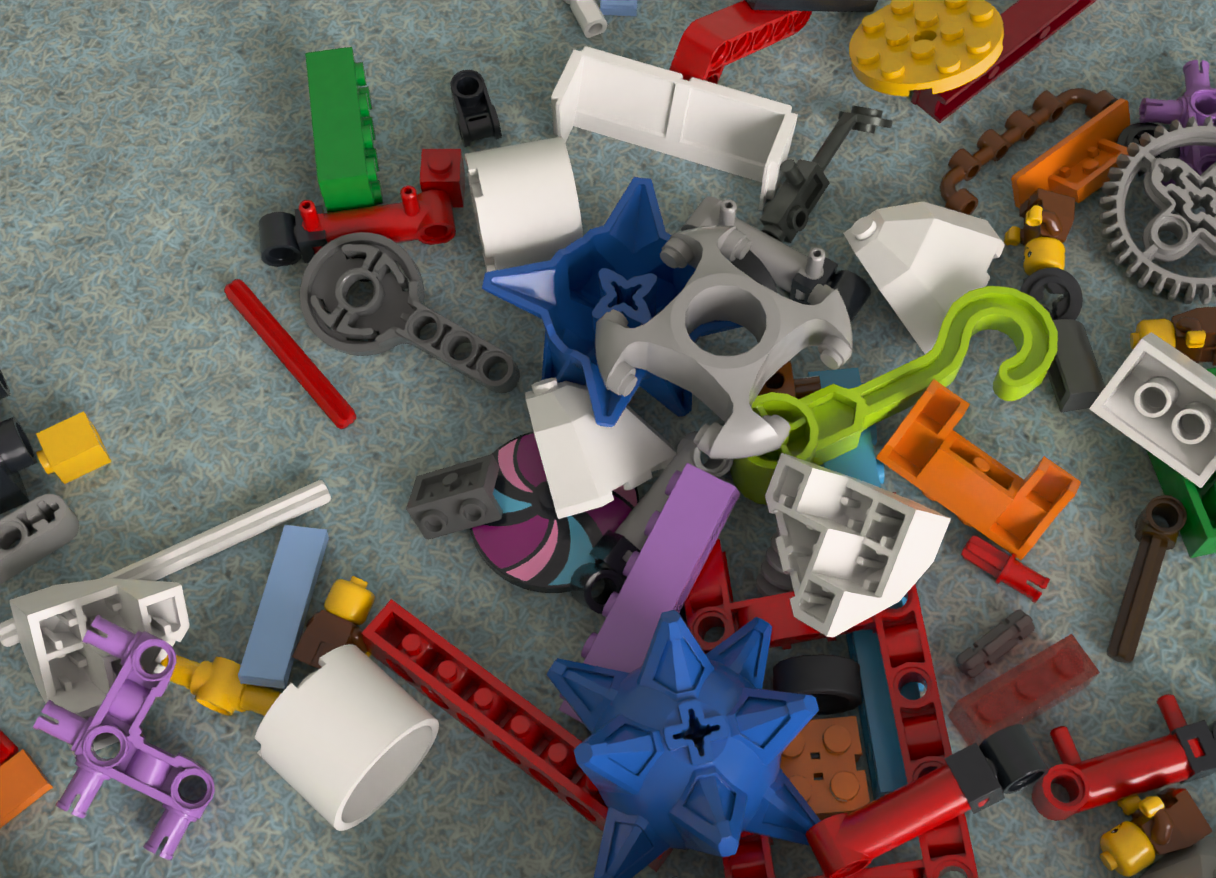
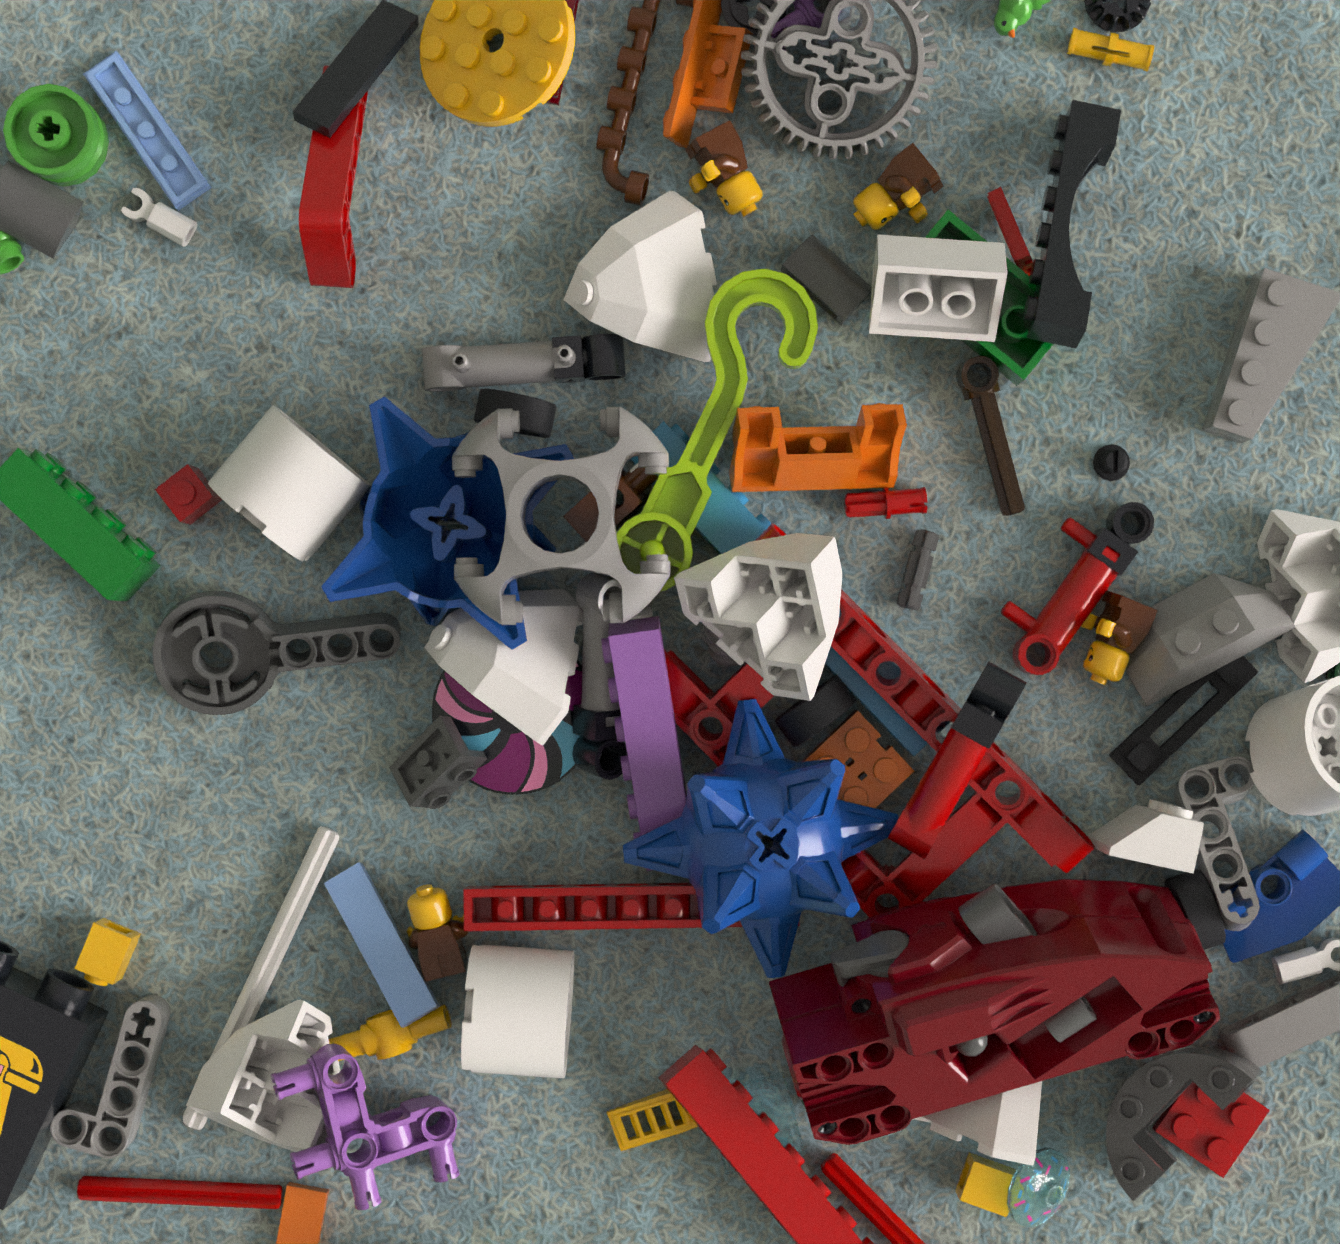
camera: 35 degrees left, 25 degrees up
(290, 354) = (198, 742): red axle -> none
(418, 217) = (133, 621): red piece -> none
(475, 112) = (161, 410): black piece -> none
(674, 115) = (337, 289): white piece -> none
(806, 179) = (499, 305): pearl dark grey piece -> none
(1024, 691) = (964, 599): clear red brick -> none
(1056, 282) = (785, 225): black gear -> none

